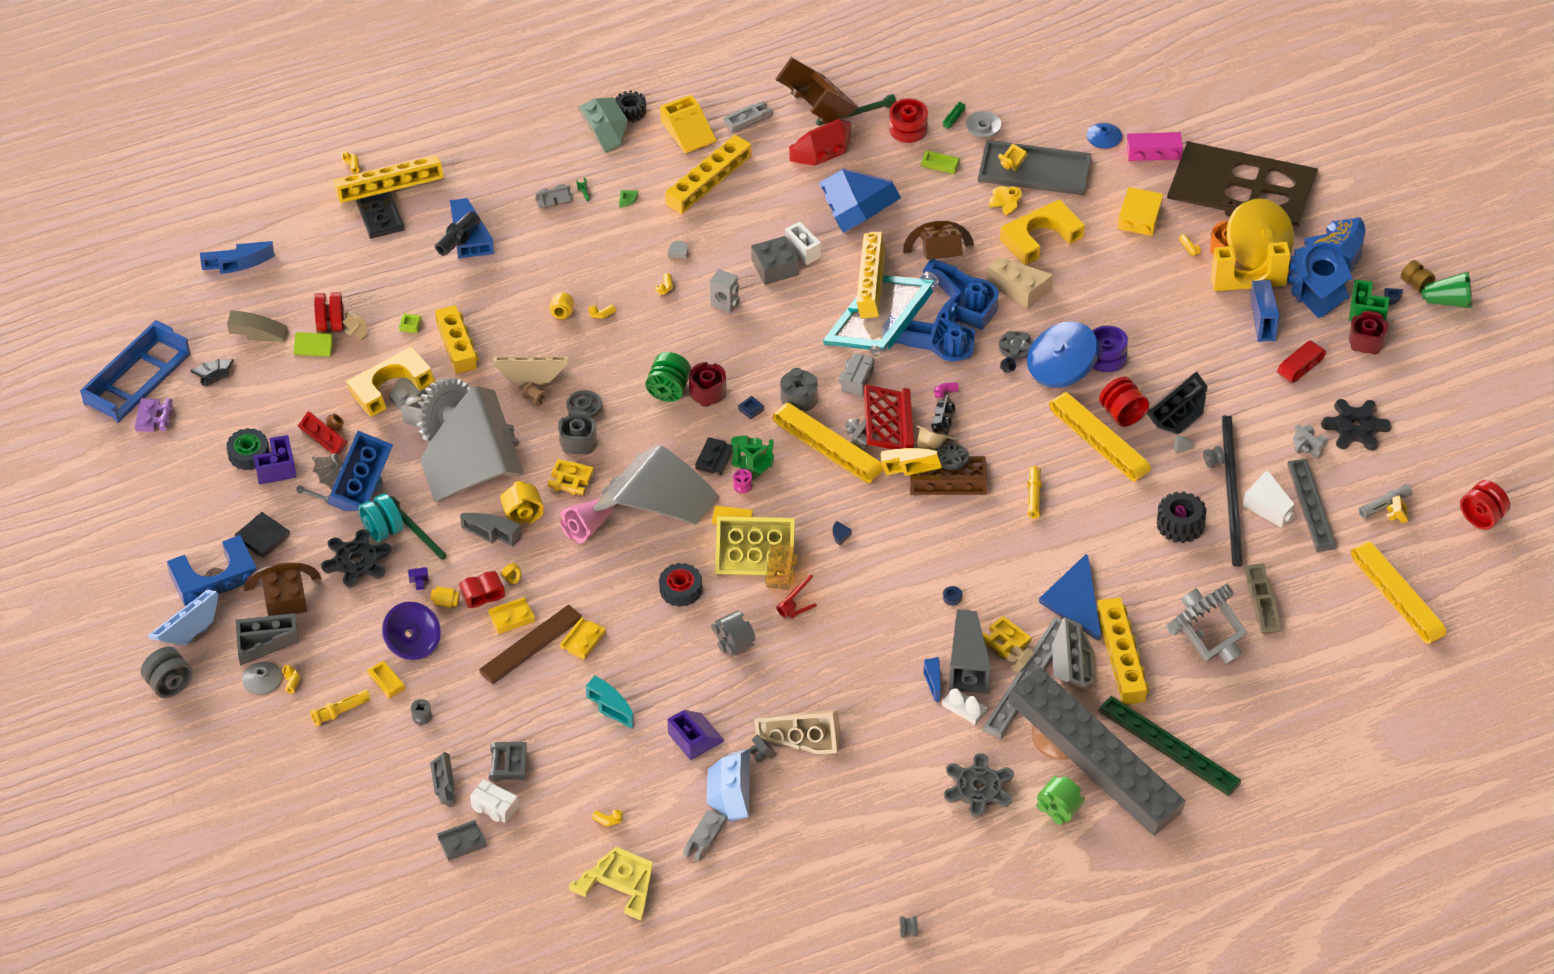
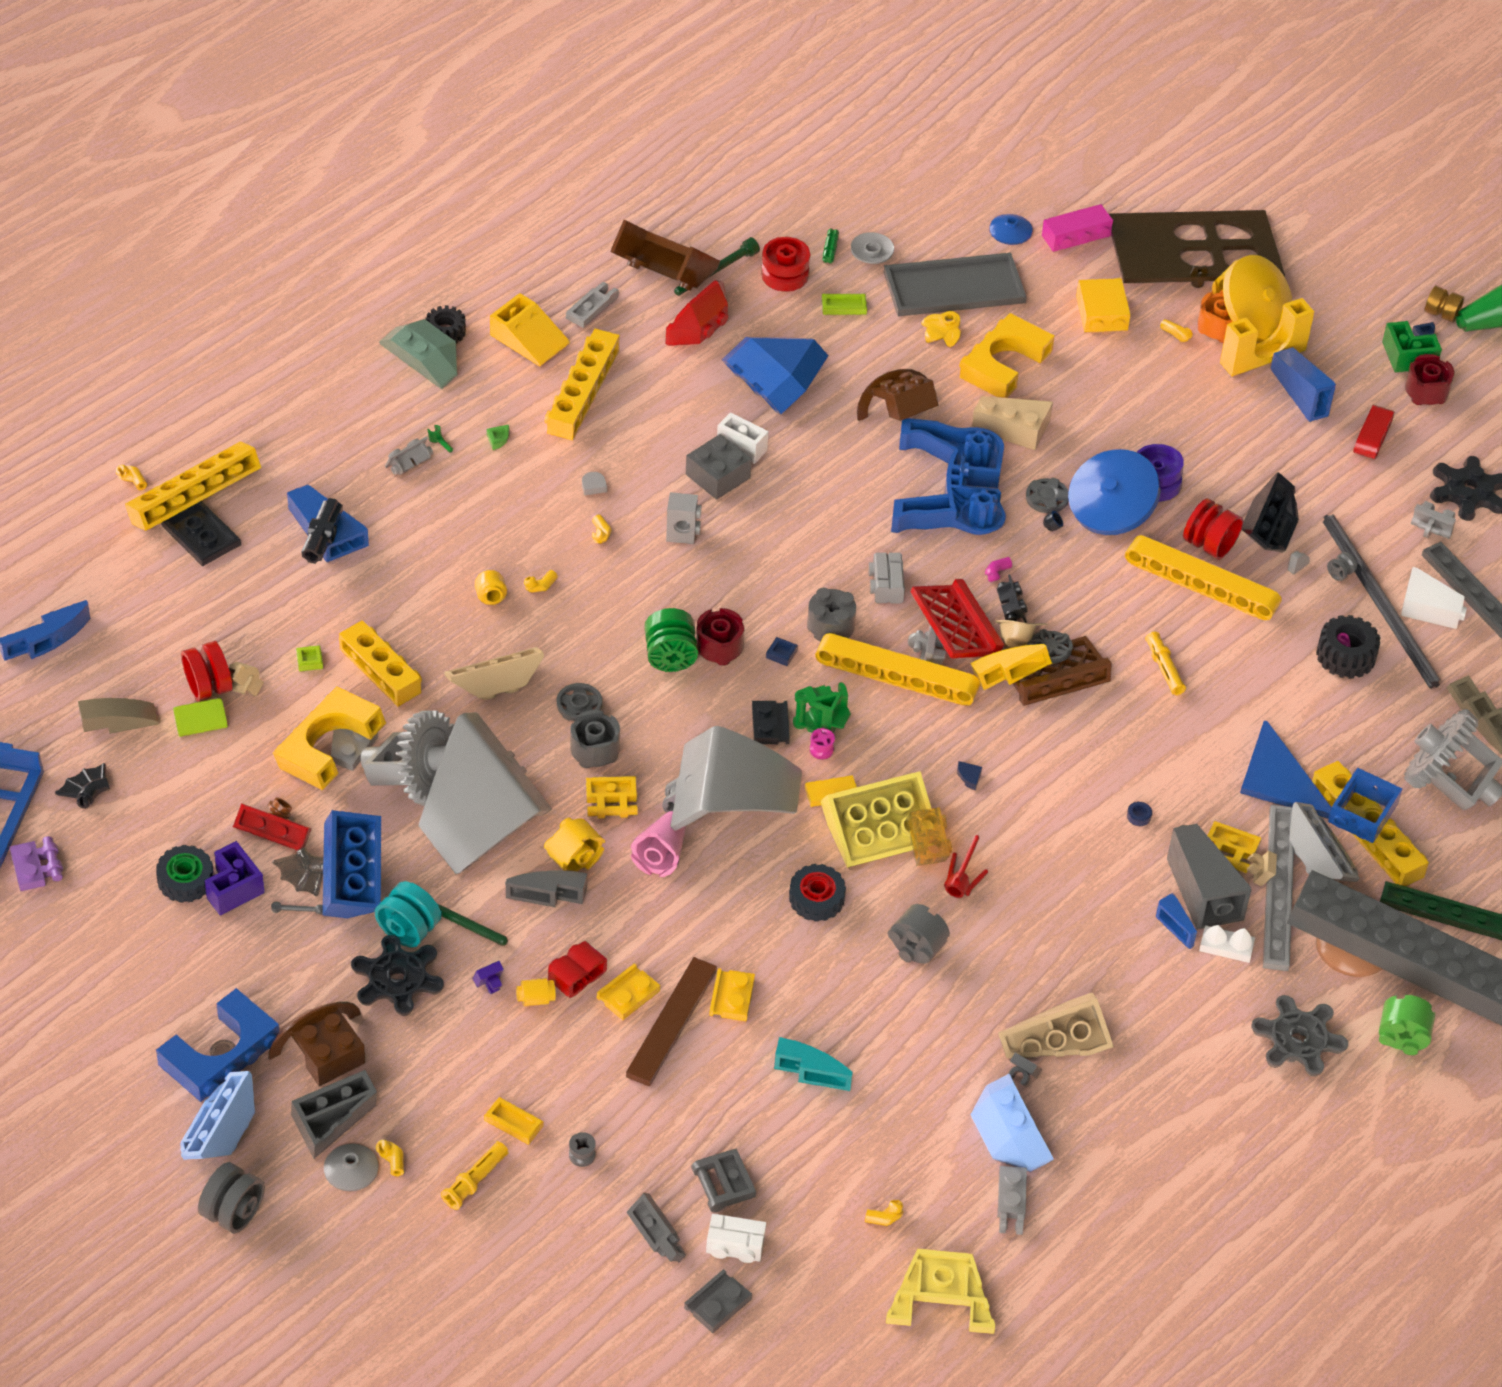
camera: 25 degrees left, 0 degrees up
(263, 534) = (260, 978): black tile -> none
(420, 623) = (529, 1041): dark purple dish -> none
(510, 572) = (601, 935): yellow tile -> none
(534, 394) = (513, 705): medium nougat bush -> none
(693, 733) = (933, 1075): dark purple slope -> none
(871, 275) = (845, 455): yellow brick -> none
(898, 306) = (878, 497): door -> none
(908, 926) = (1316, 1237): dark grey wheel -> none
(1013, 157) = (929, 278): yellow bracket -> none
(1129, 622) = (1363, 784): none -> blue window
(1326, 265) = (1338, 308): blue animal -> none

